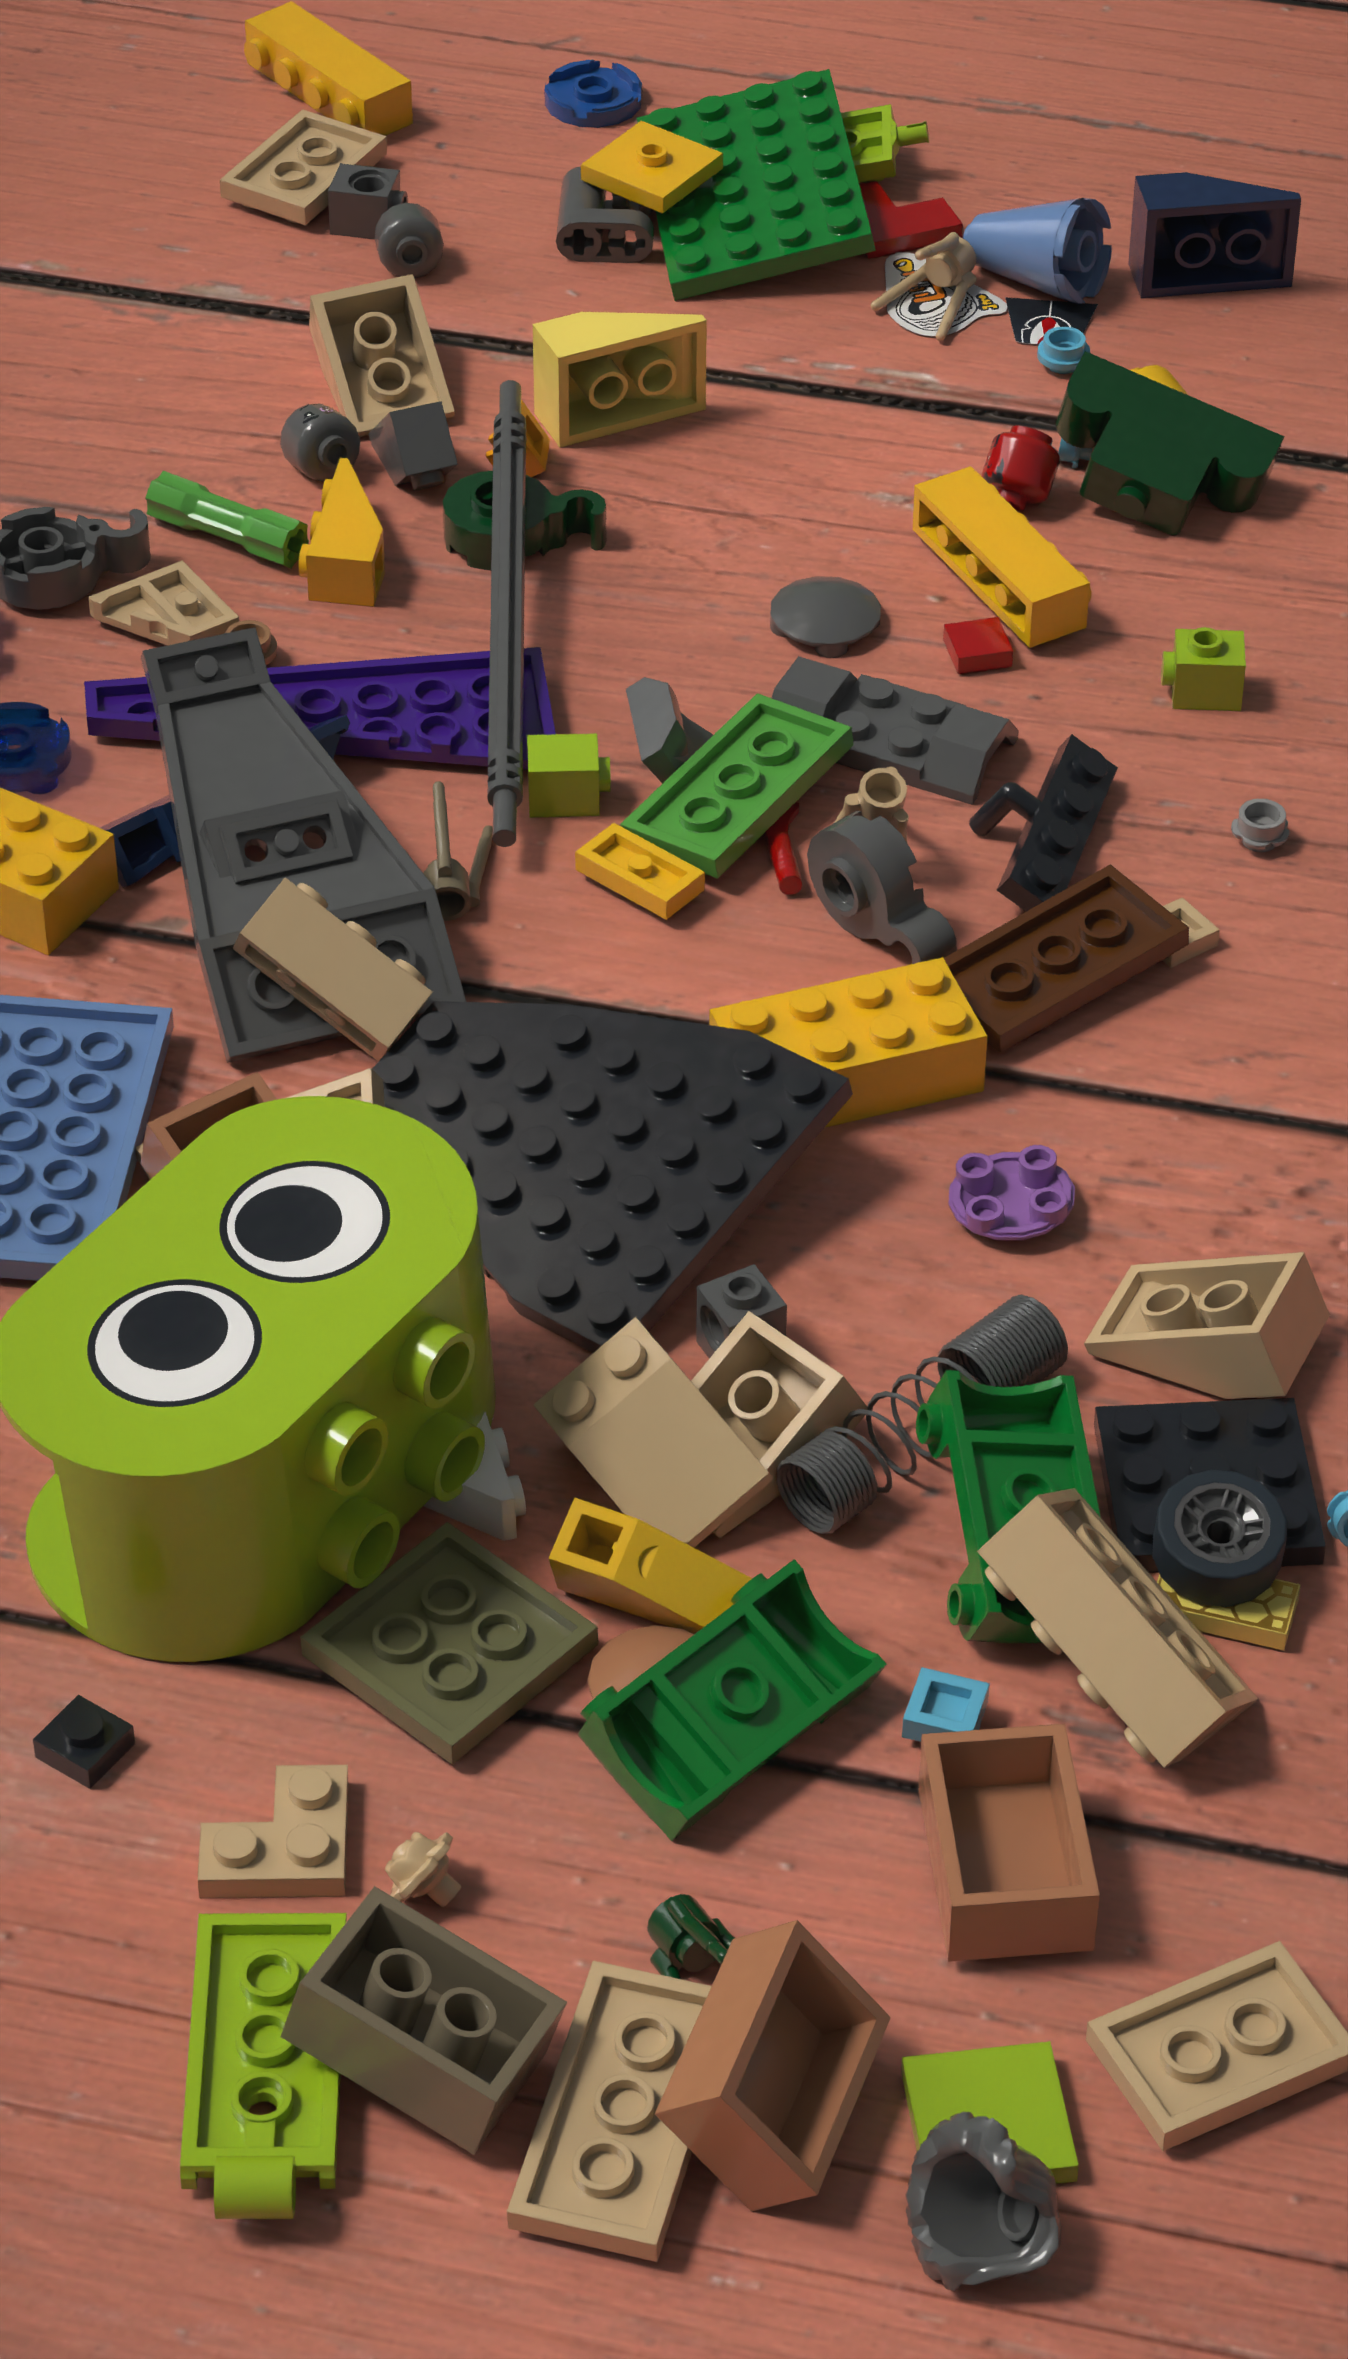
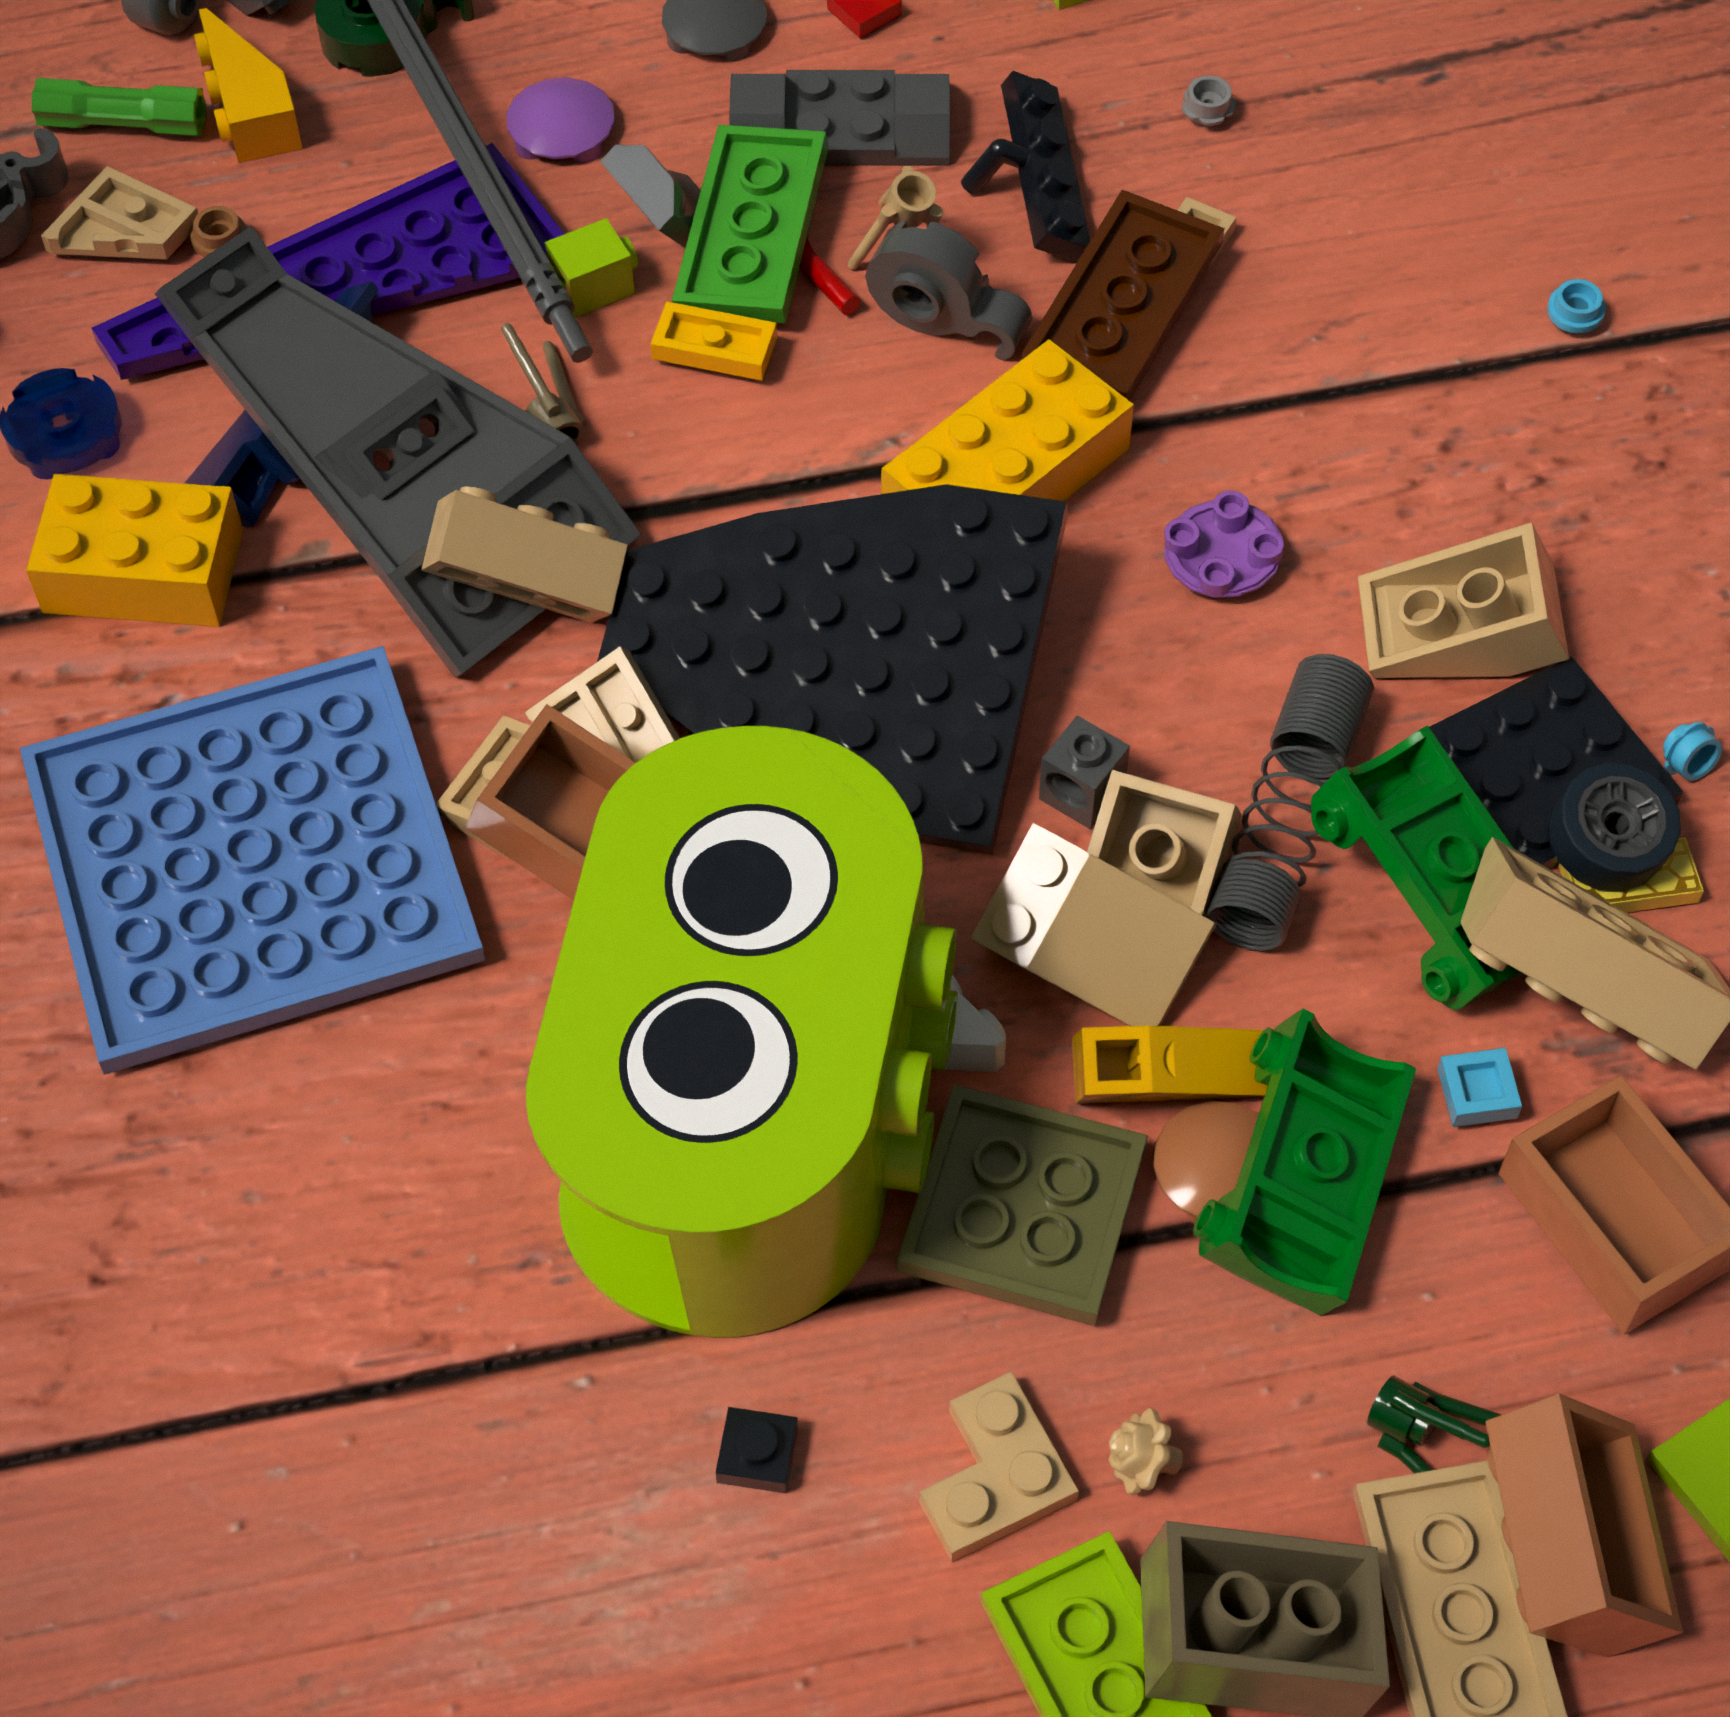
camera: 25 degrees left, 15 degrees up
(621, 651) = (560, 120): none -> medium lavender dish

